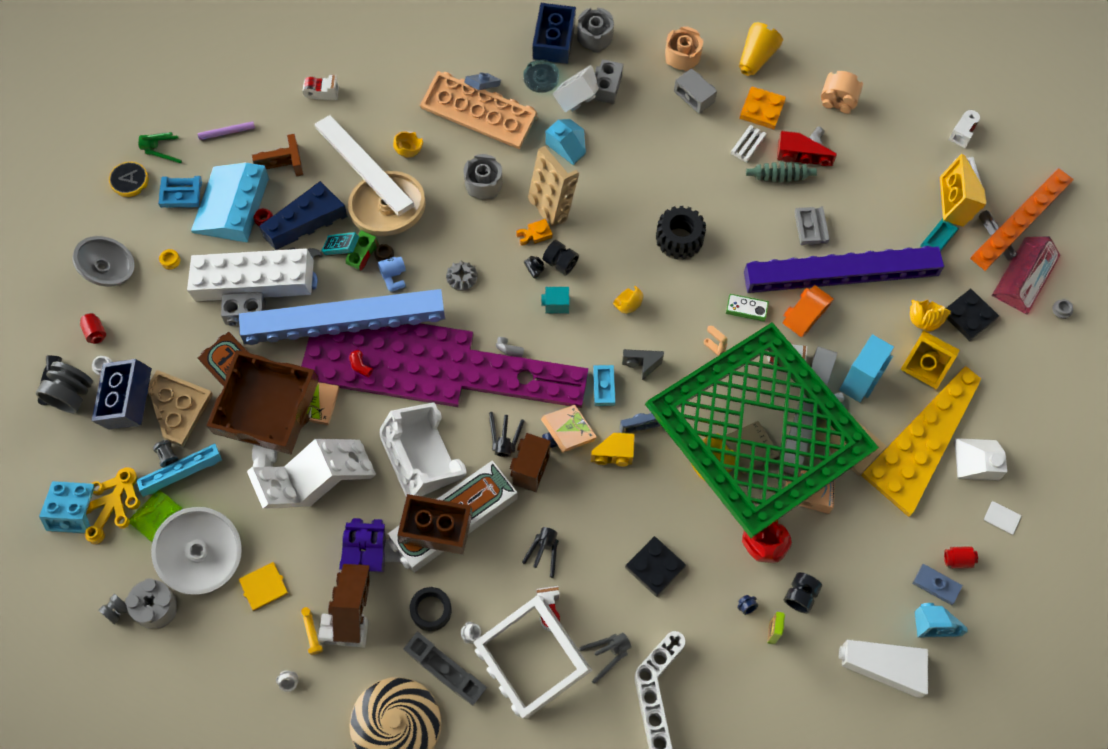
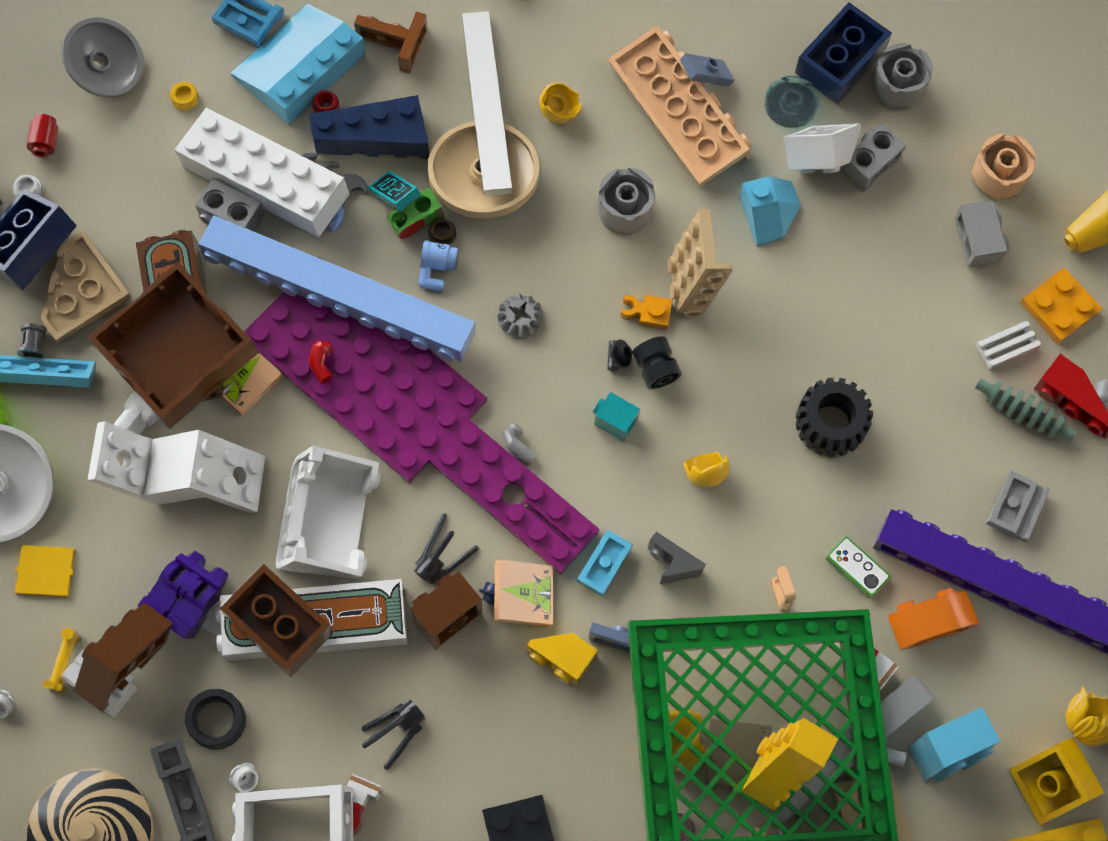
camera: 30 degrees right, 5 degrees up
(790, 421) = (788, 761): none -> yellow wedge

